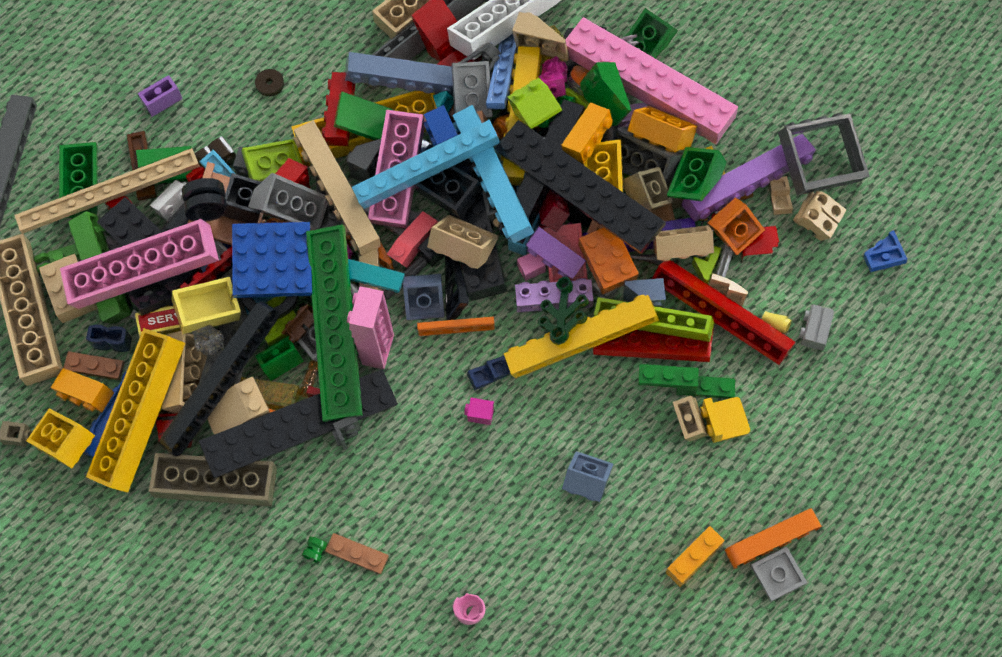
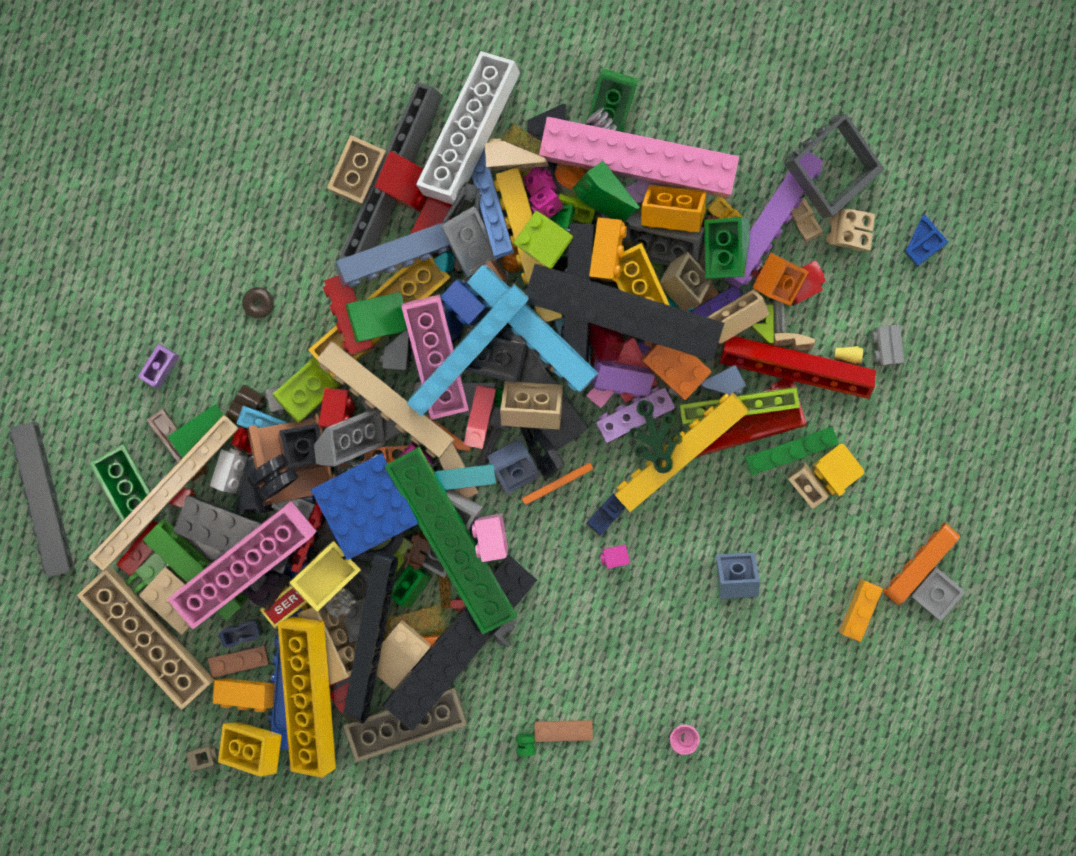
camera: 30 degrees left, 20 degrees up
(55, 240) = (137, 552): none -> red plate

